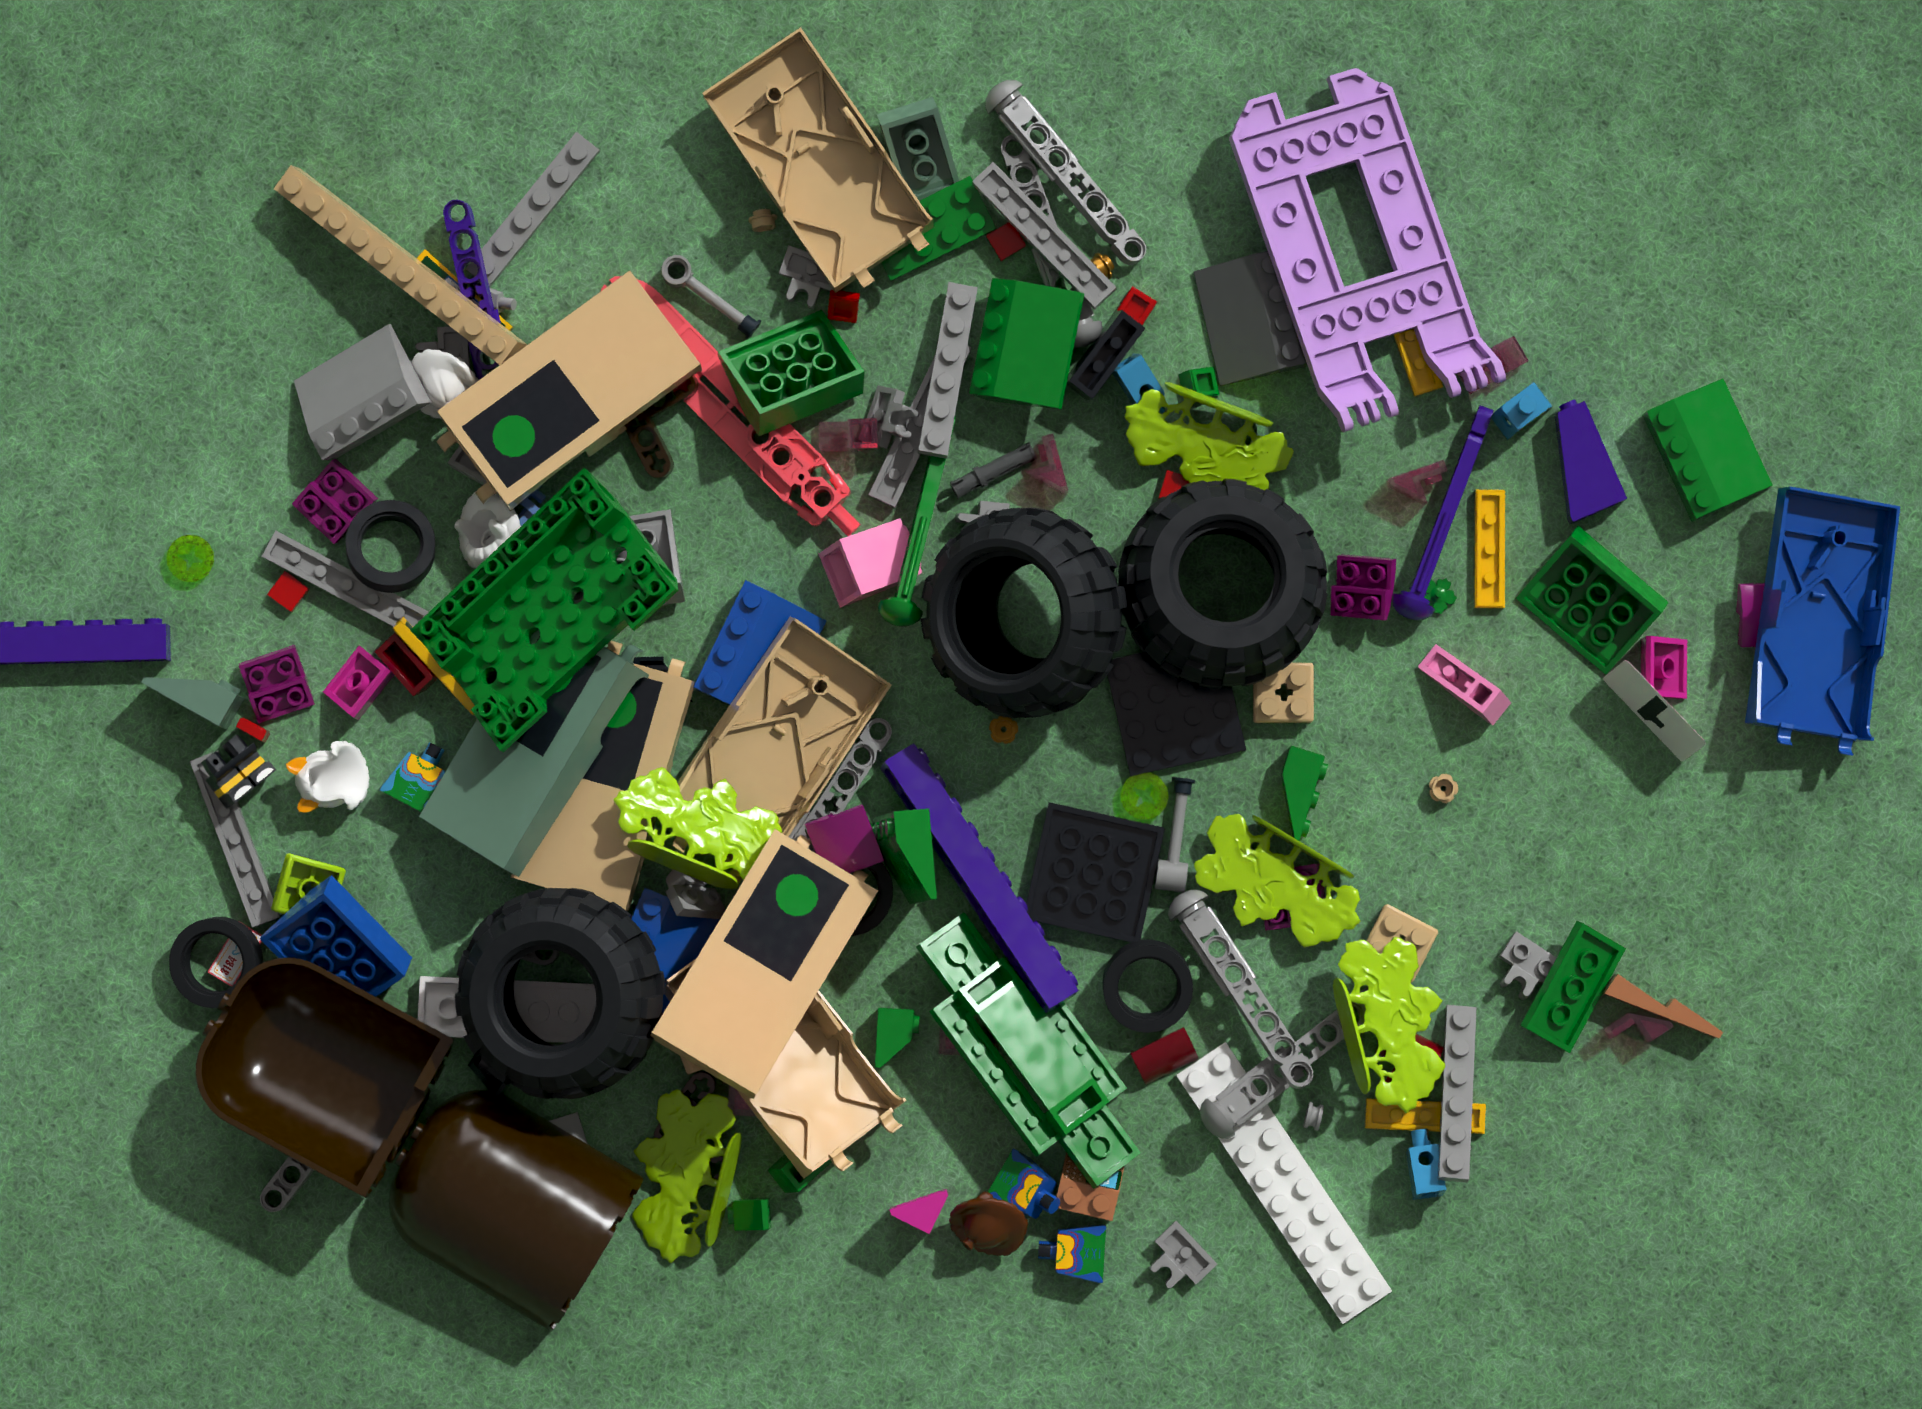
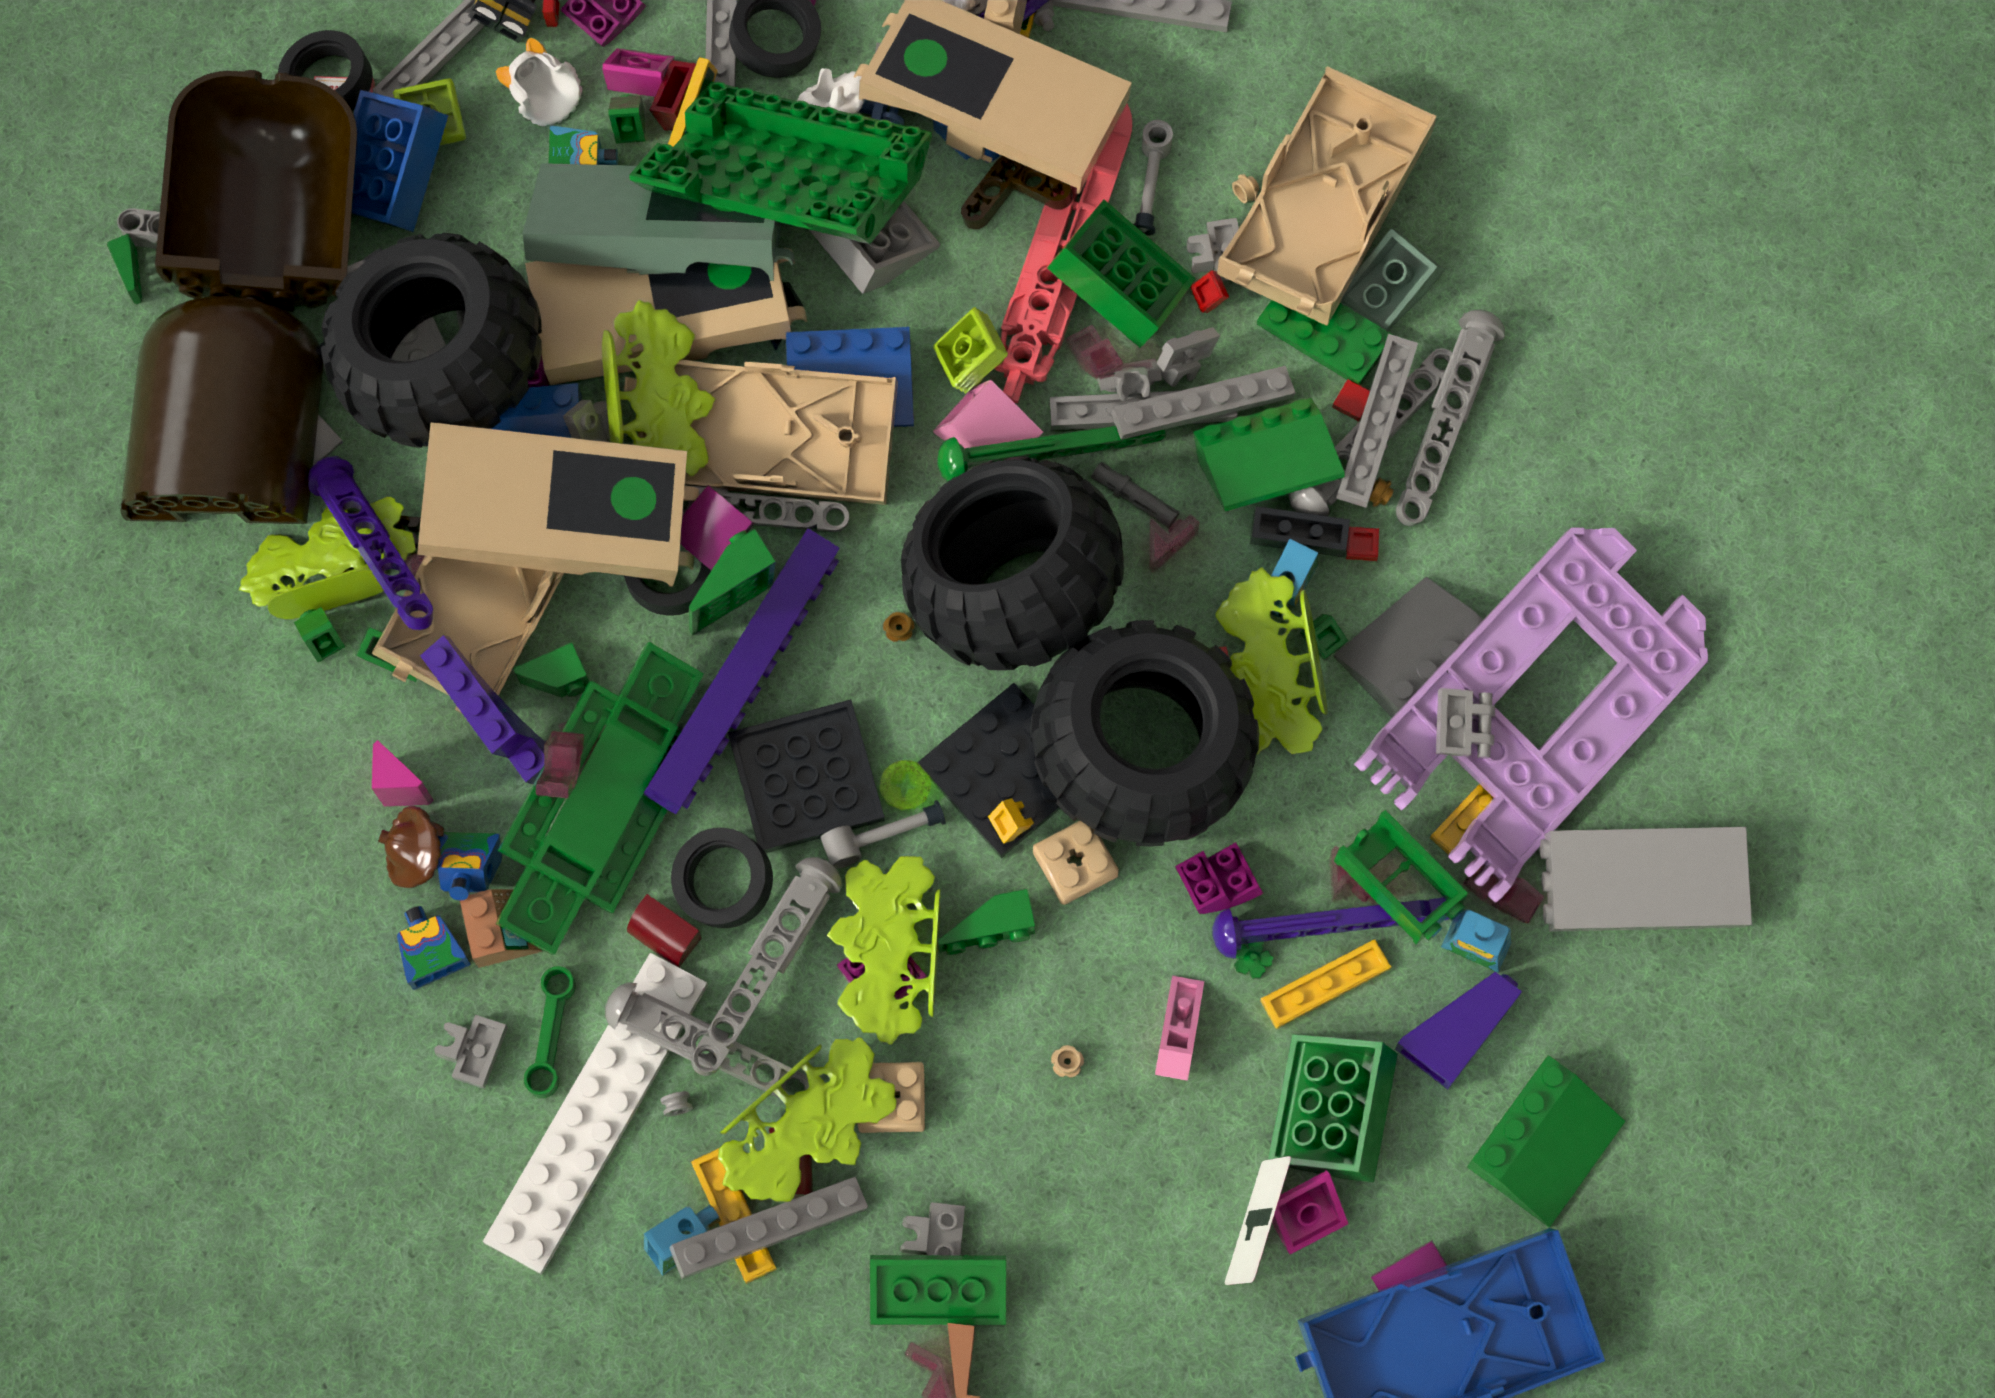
camera: 60 degrees right, 15 degrees down
(304, 1220) = (126, 260): none -> green slope
(403, 716) = (627, 118): none -> green slope
(638, 1134) = (334, 482): none -> dark purple piece
(780, 532) = (970, 350): none -> lime brick
(899, 364) = (1182, 355): none -> light grey plate
(912, 1108) = (485, 711): none -> dark purple arch
(997, 1070) = (561, 764): none -> clear pink slope
(1199, 1188) = (550, 1031): none -> green piece
(1226, 729) = (1009, 820): none -> yellow tile
(1344, 326) = (1455, 723): none -> light grey plate
(1406, 450) = (1373, 846): none -> green door
(1546, 248) = (1646, 879): none -> light grey brick

